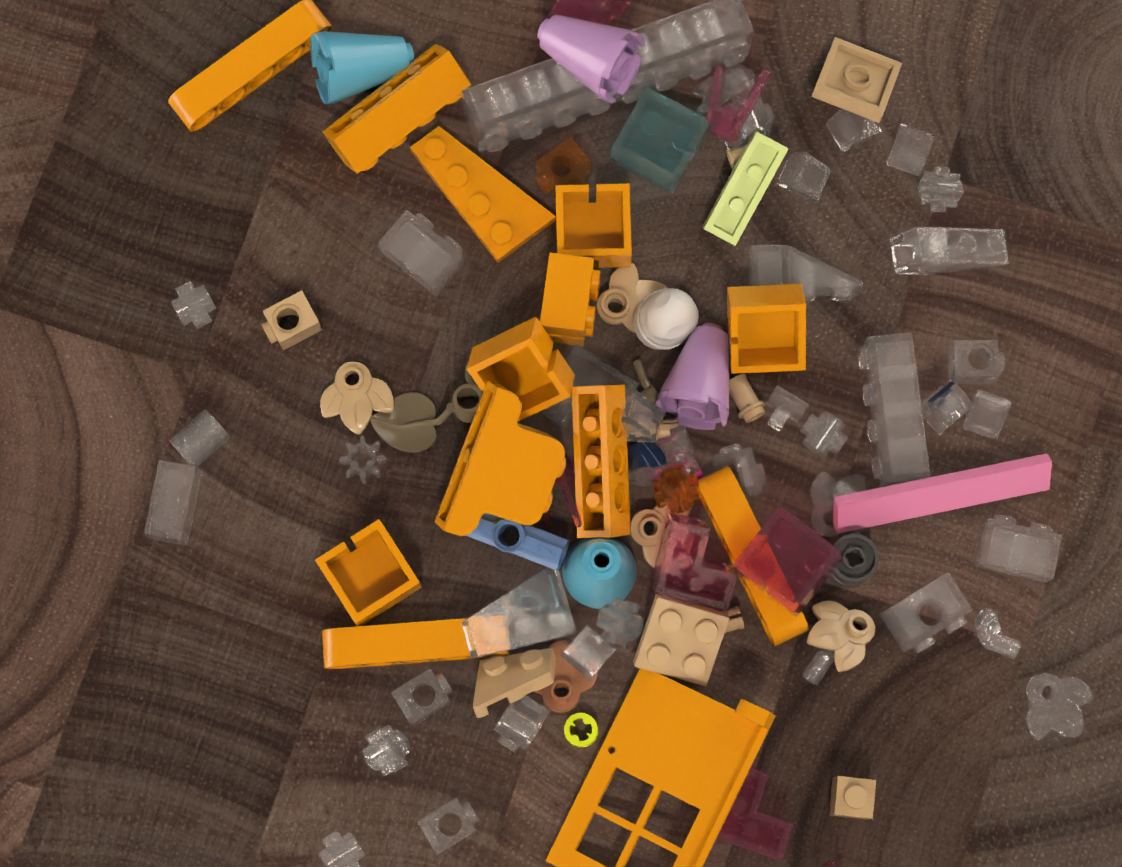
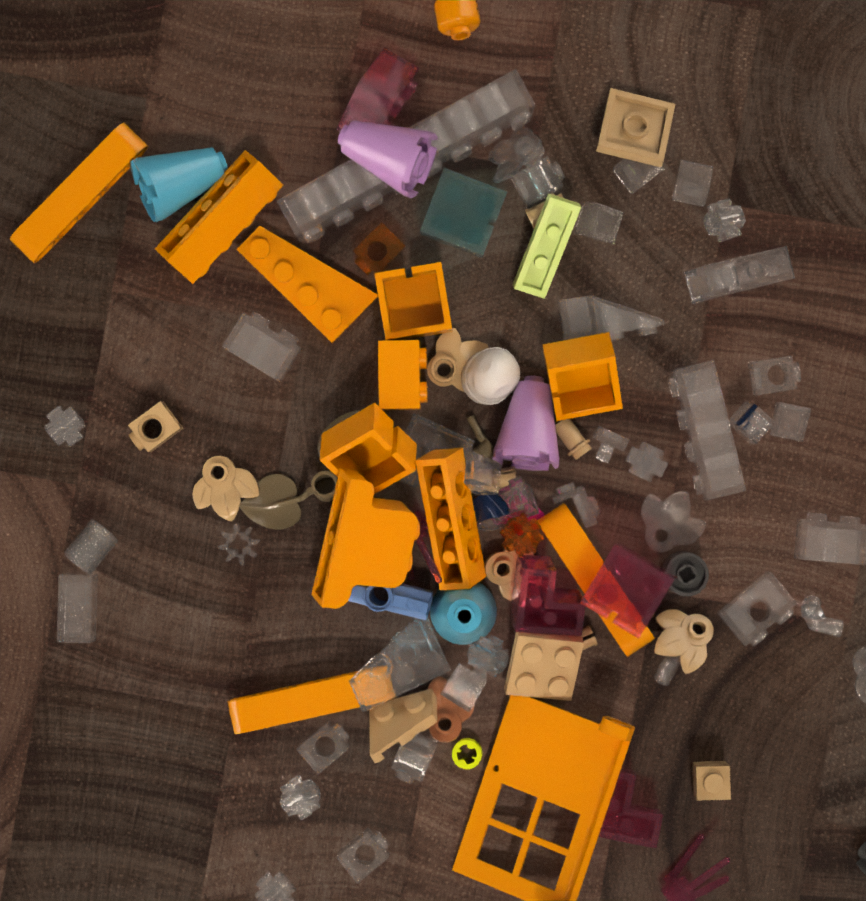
camera: 10 degrees left, 10 degrees up
(371, 575) = (260, 648): light orange piece -> none
(730, 121) = (524, 191): clear pink plant -> none
(941, 493) = (758, 501): bright pink tile -> none

